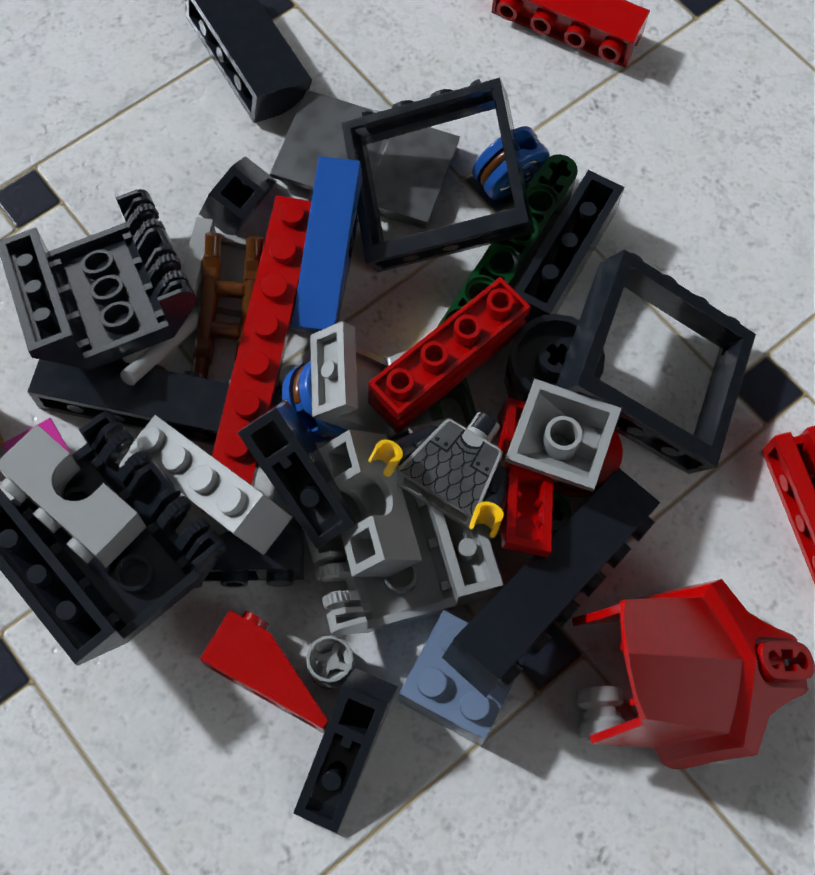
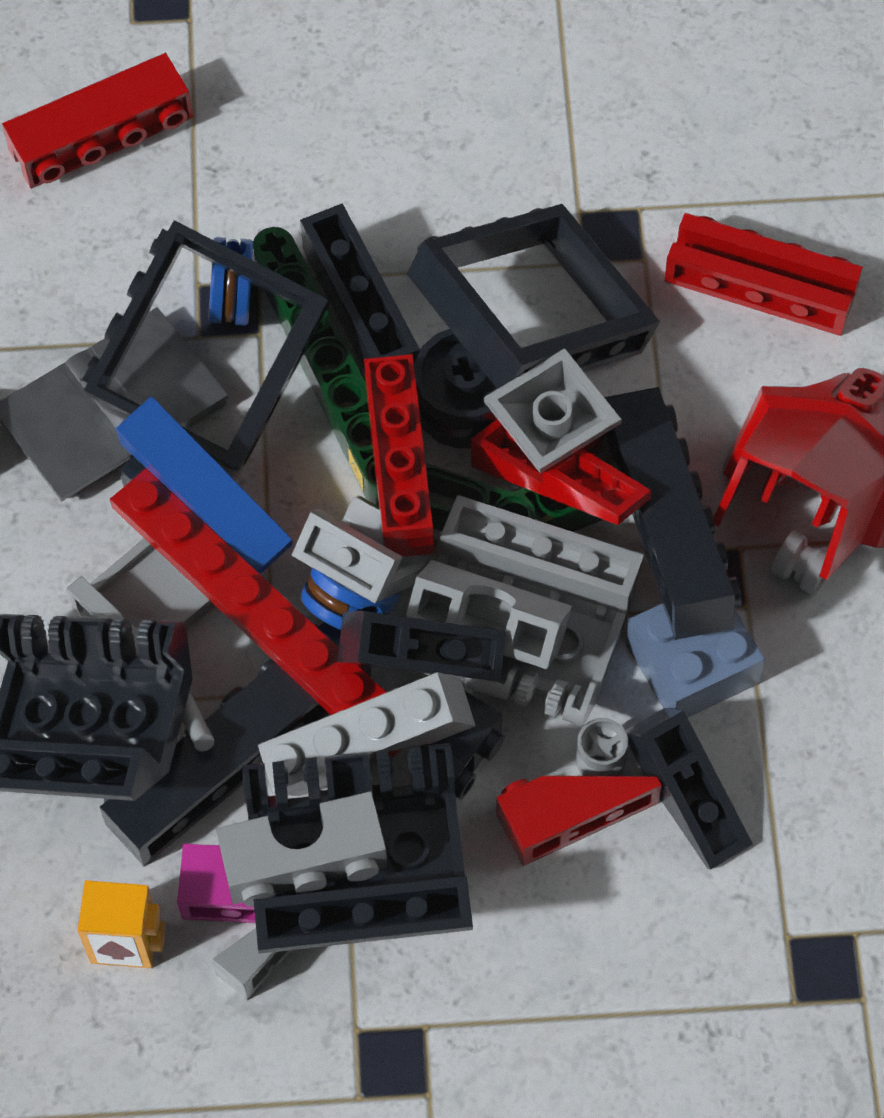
camera: 50 degrees left, 5 degrees down
(213, 288) = (181, 594): reddish brown piece -> none
(237, 196) = (67, 541): black slope -> none
(452, 470) = (520, 518): torso -> none

